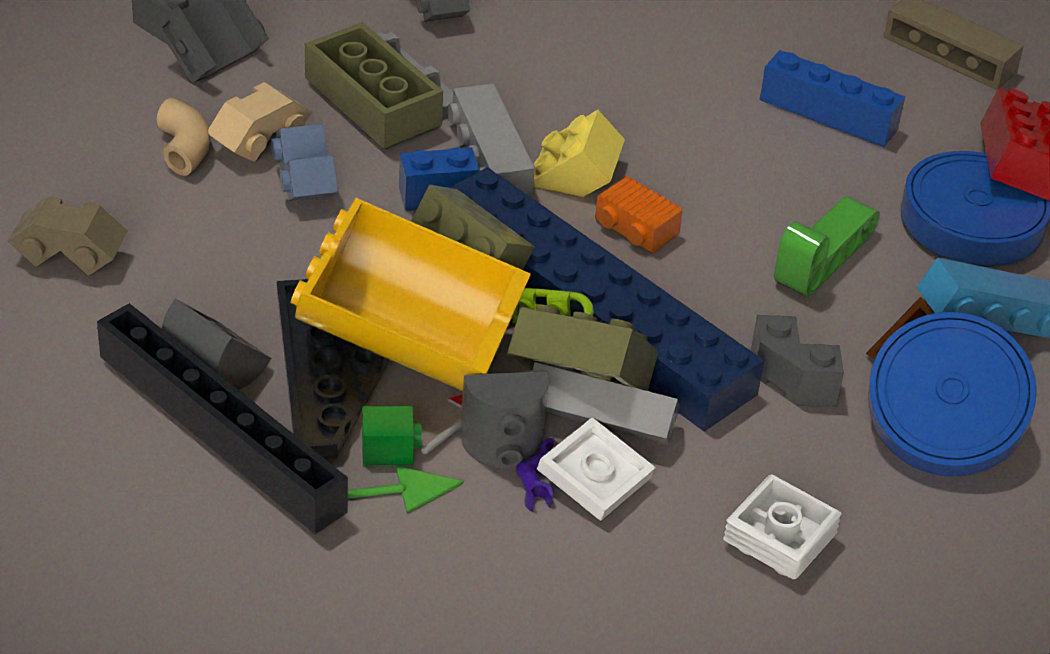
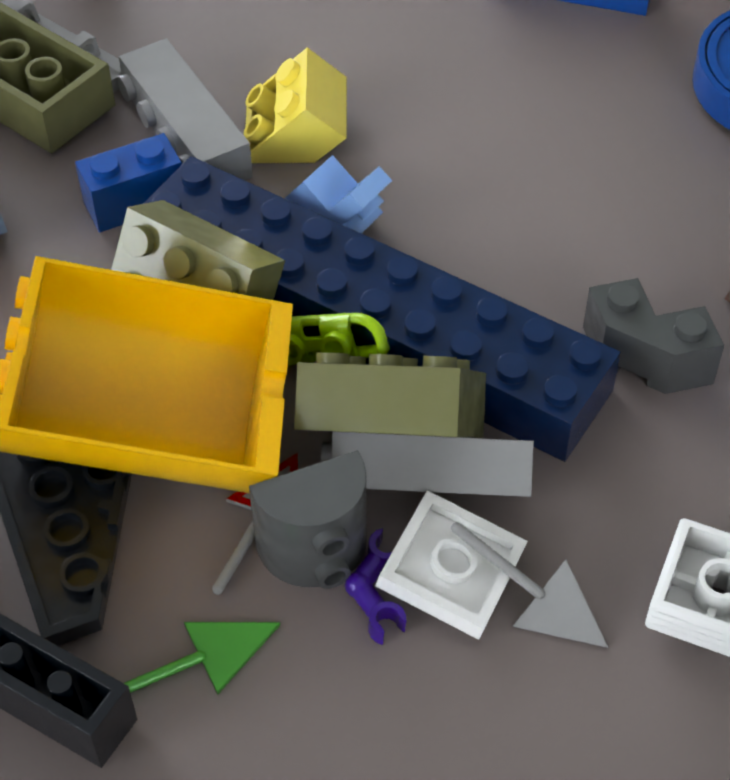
camera: 10 degrees left, 10 degrees up
(389, 435) = (165, 583): green brick -> none
(592, 218) = (339, 197): none -> light blue brick
(638, 214) = (414, 171): orange brick -> none
(663, 513) = (557, 607): none -> light grey piece
(814, 254) = (625, 171): bright green beam -> none

